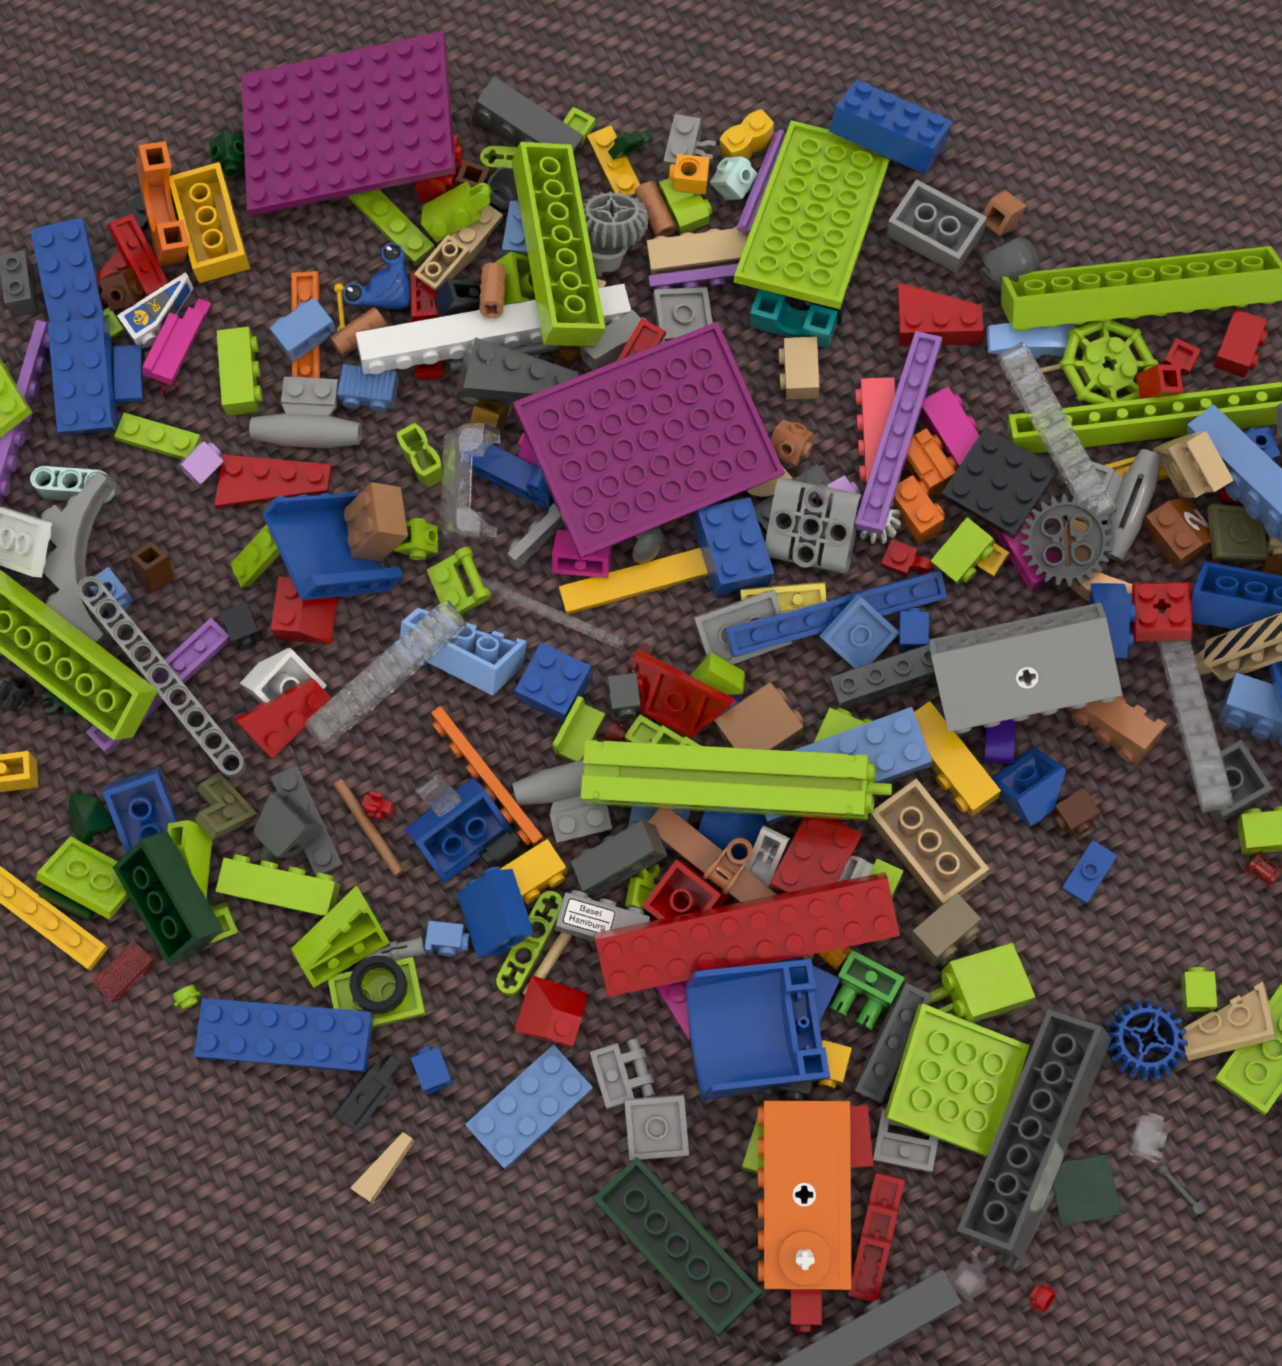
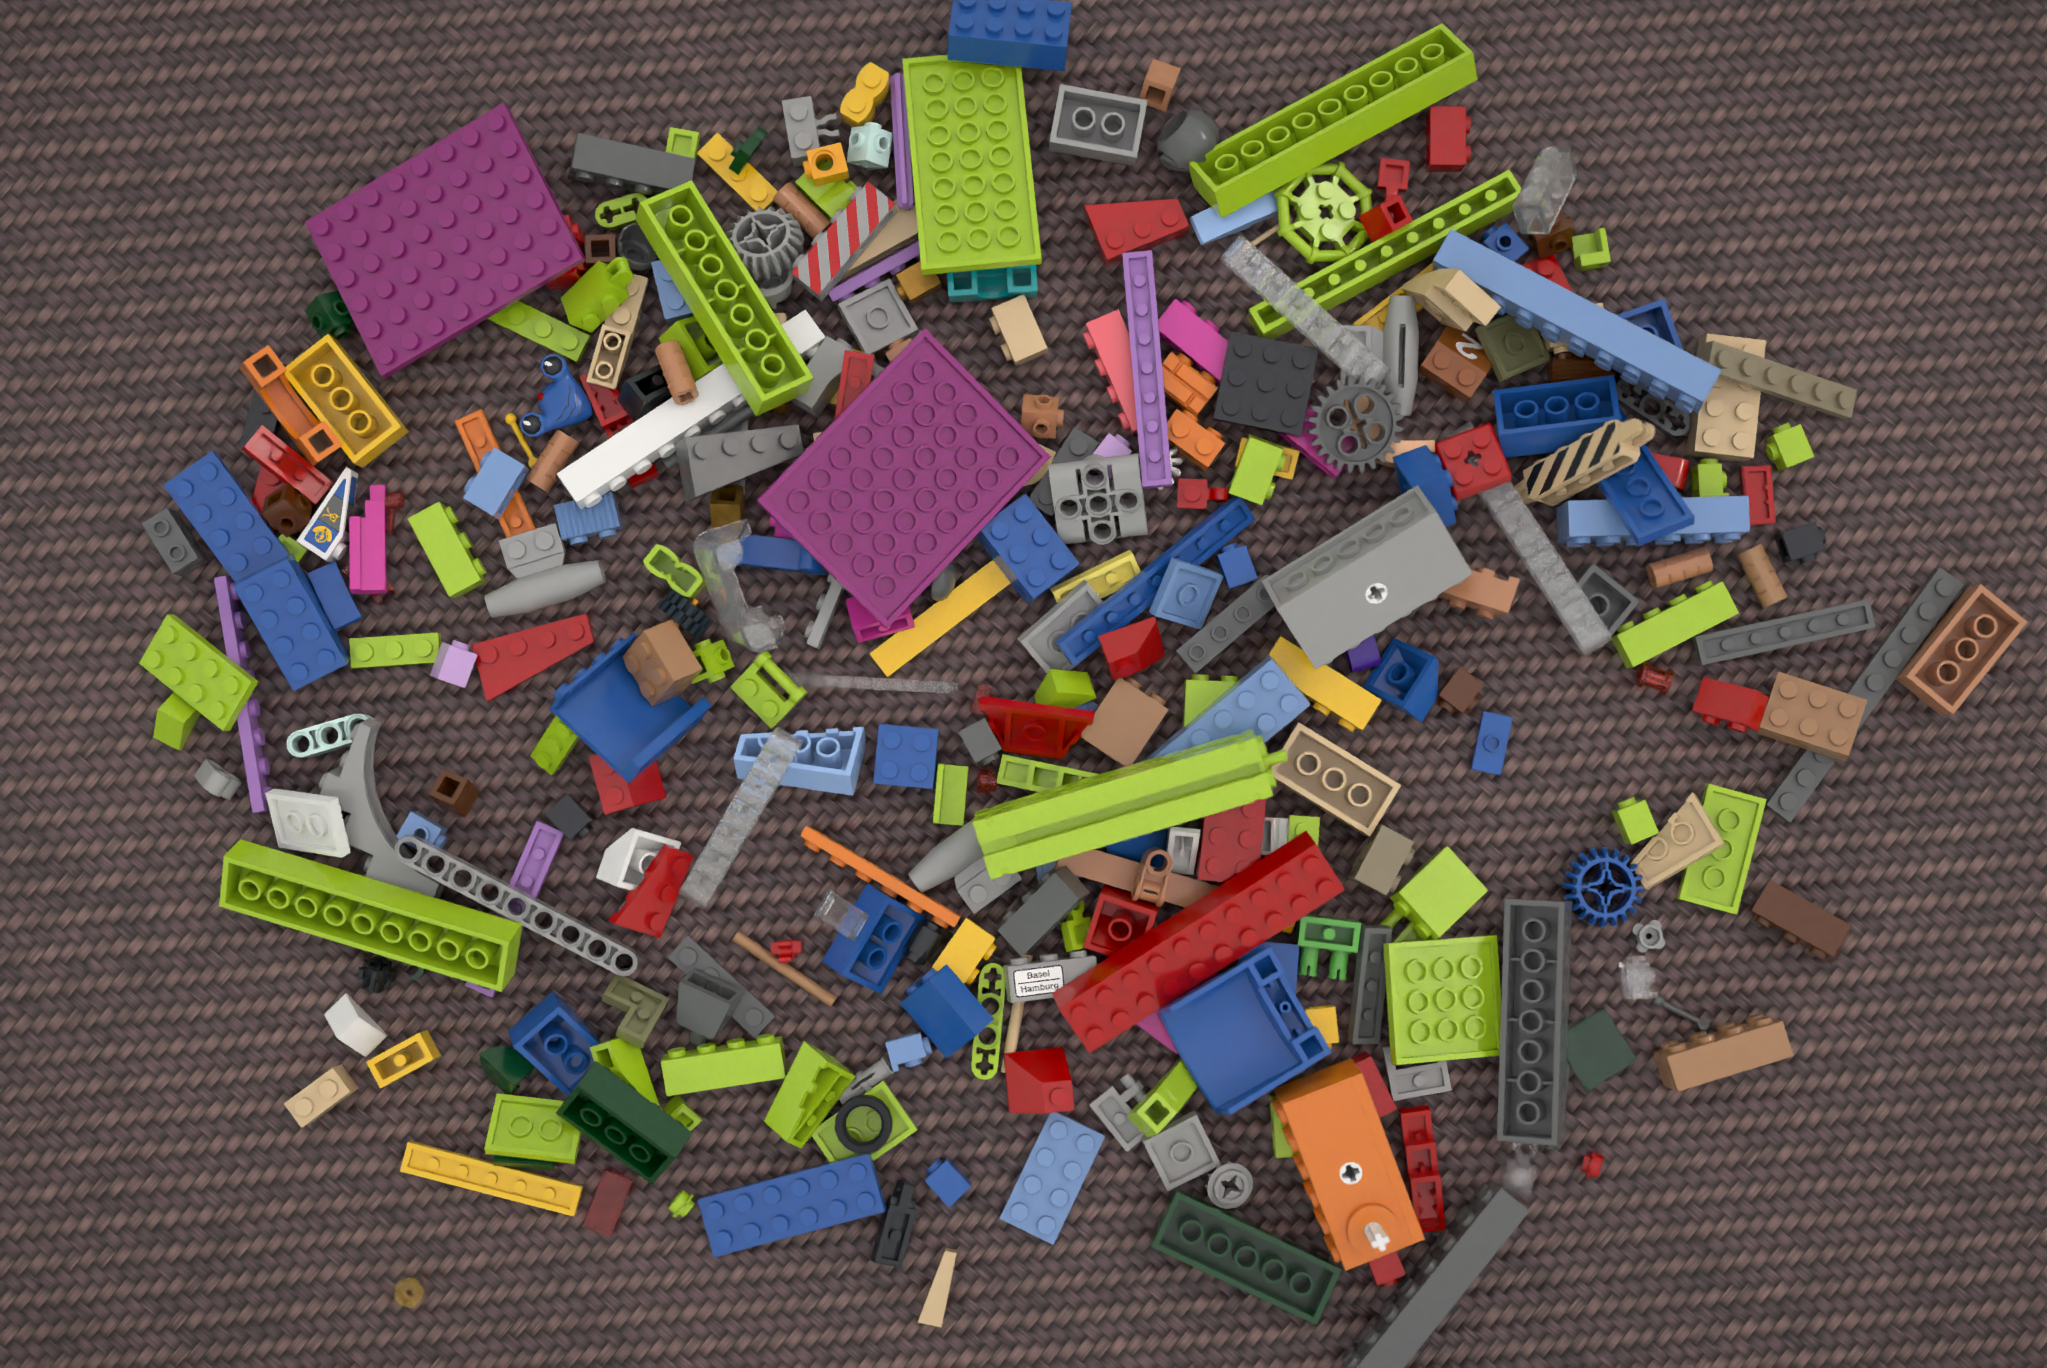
camera: 30 degrees left, 15 degrees up
(210, 317) = (392, 502): none -> clear red hand
(414, 491) = (685, 613): none -> black wheel
(657, 1070) = (1163, 1100): none -> lime slope
(679, 238) = (843, 241): none -> light grey brick
(703, 1178) = (1230, 1197): none -> light grey gear
(729, 299) = (915, 286): none -> pearl gold brick
(792, 661) = (1131, 648): none -> red slope
(1180, 1097) = (1656, 940): none -> light grey plate
(1206, 1234) = (1723, 1052): none -> medium nougat brick

